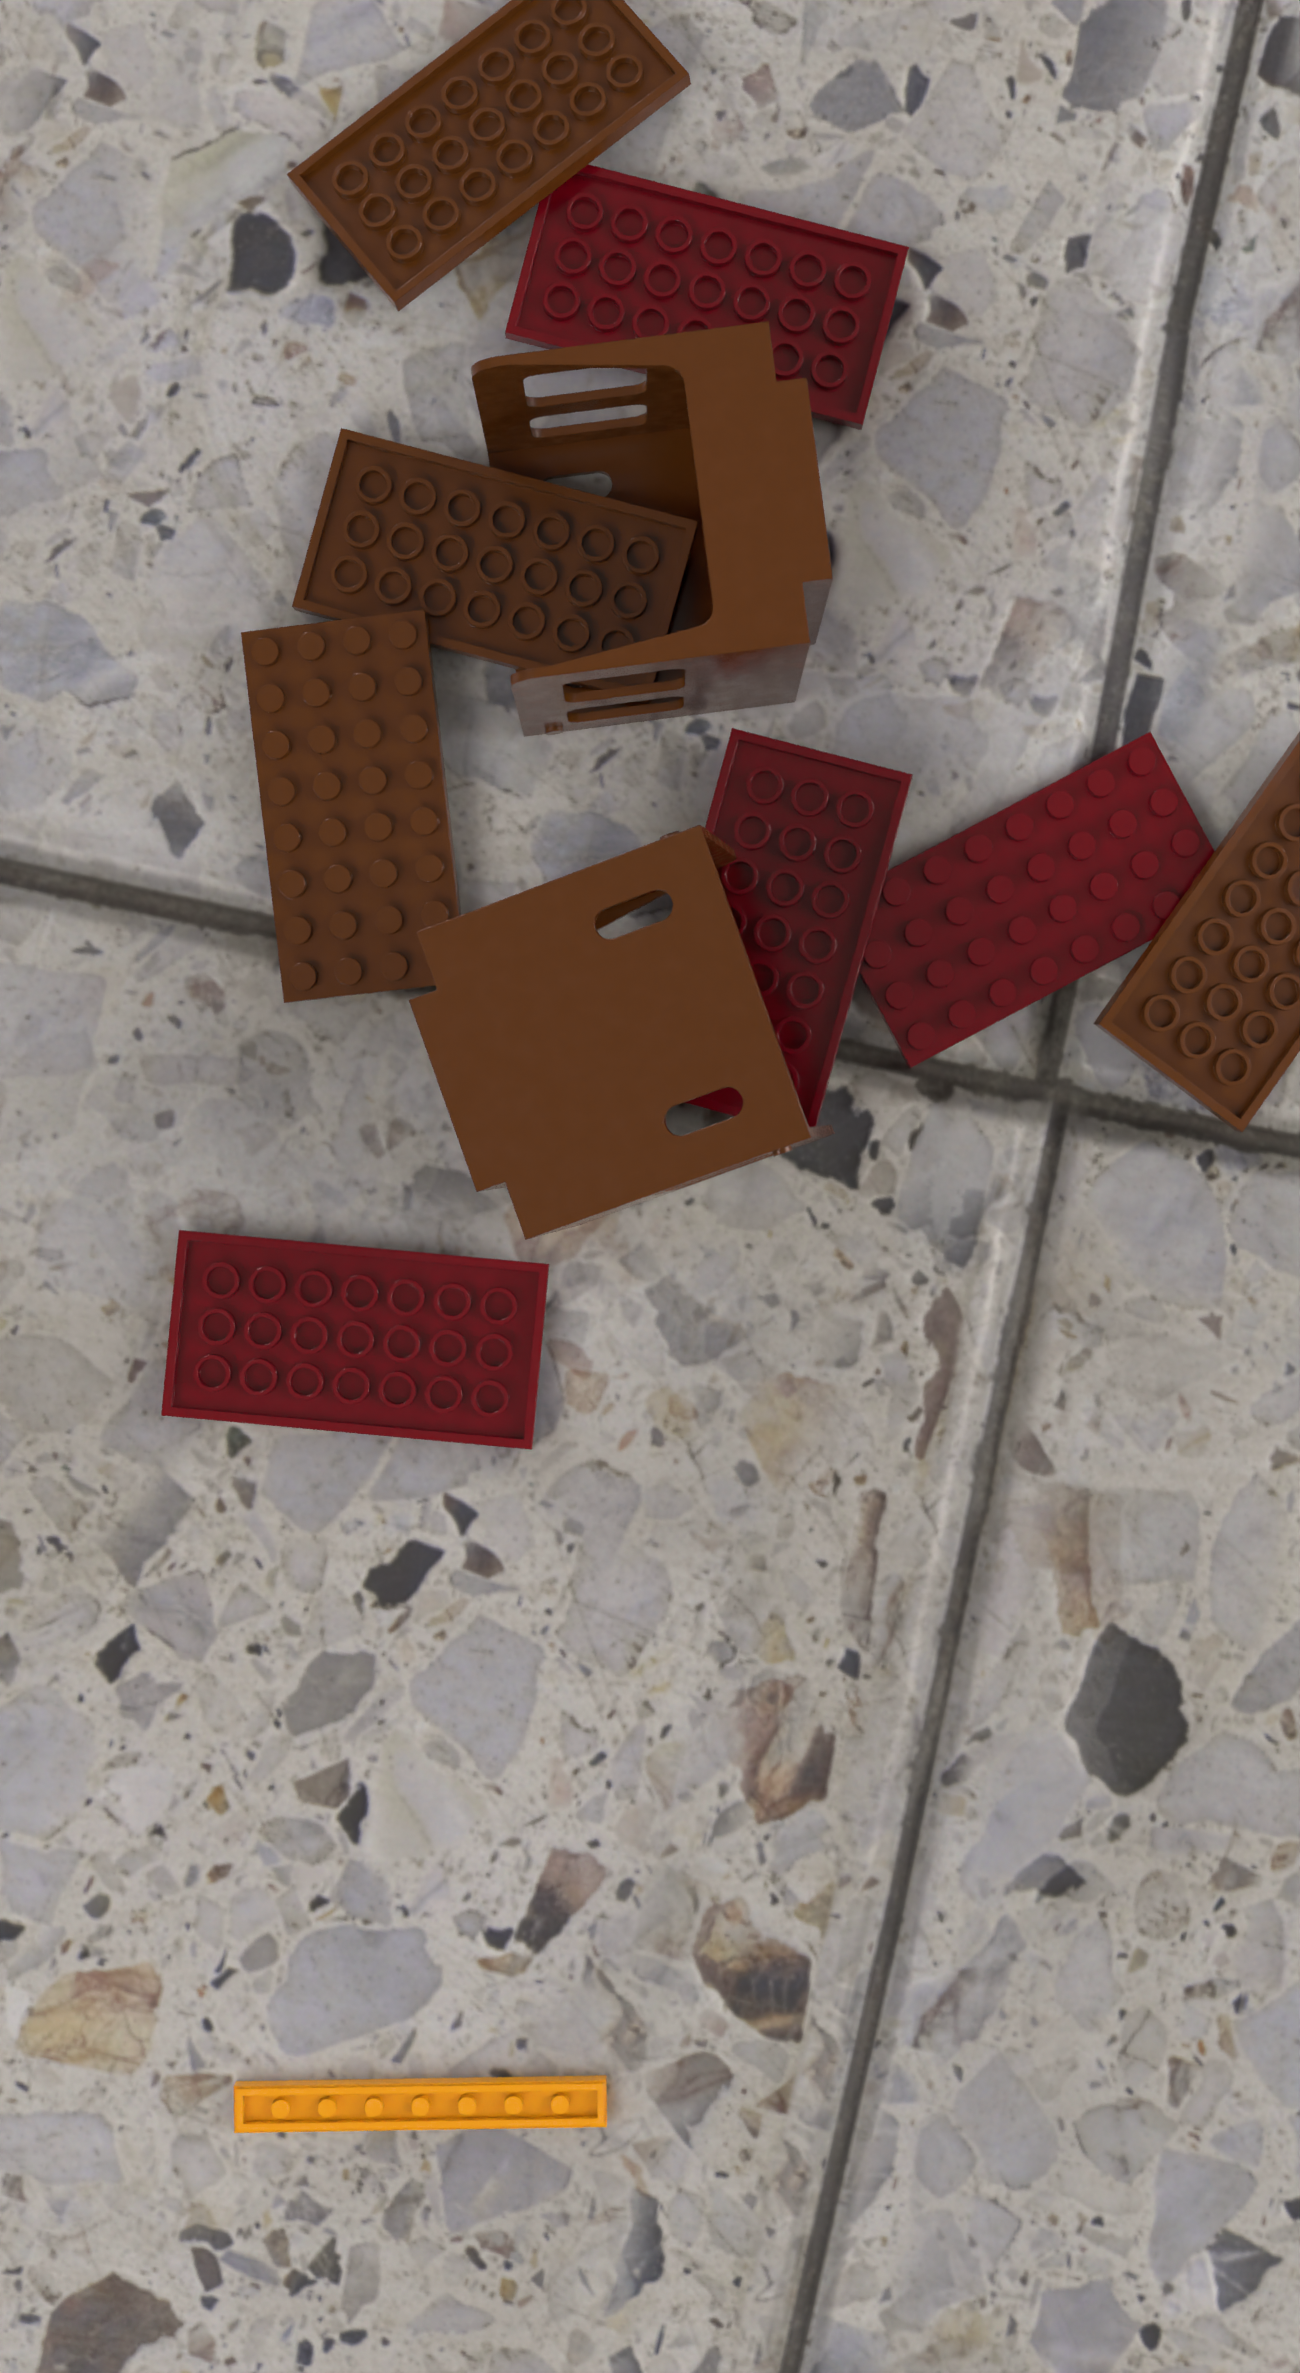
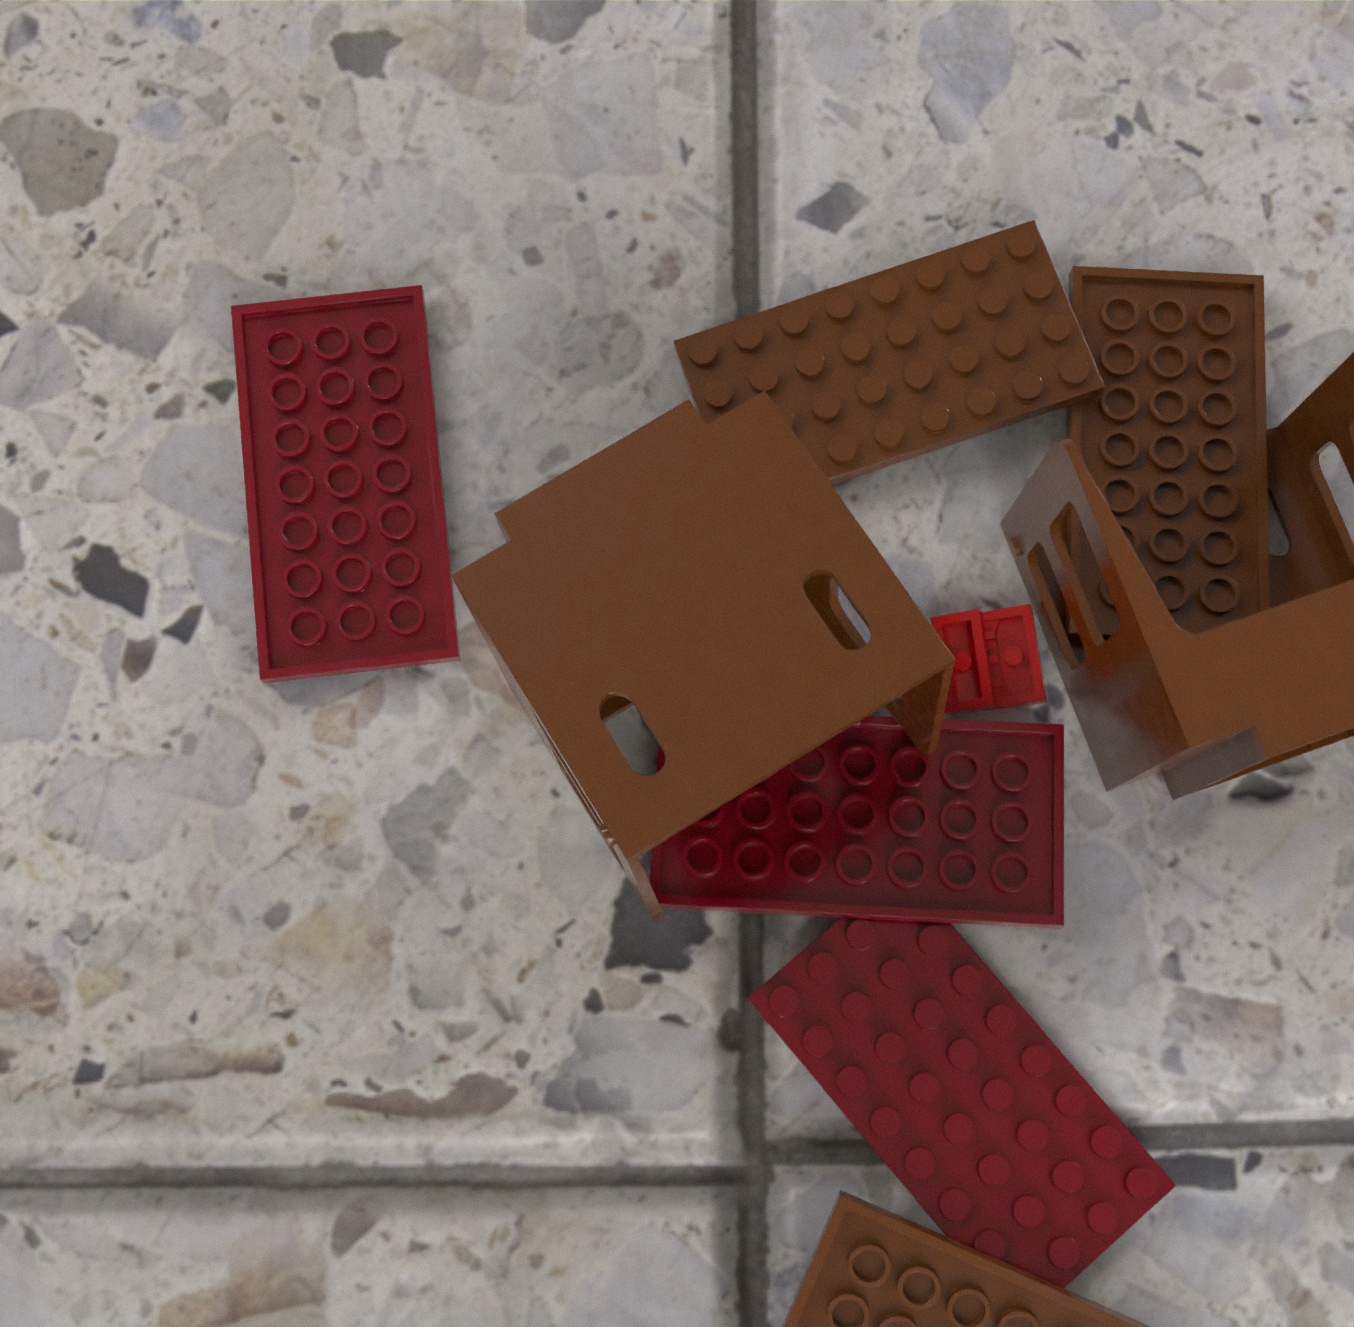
camera: 70 degrees right, 10 degrees down
(652, 779) = (994, 659): none -> red slope

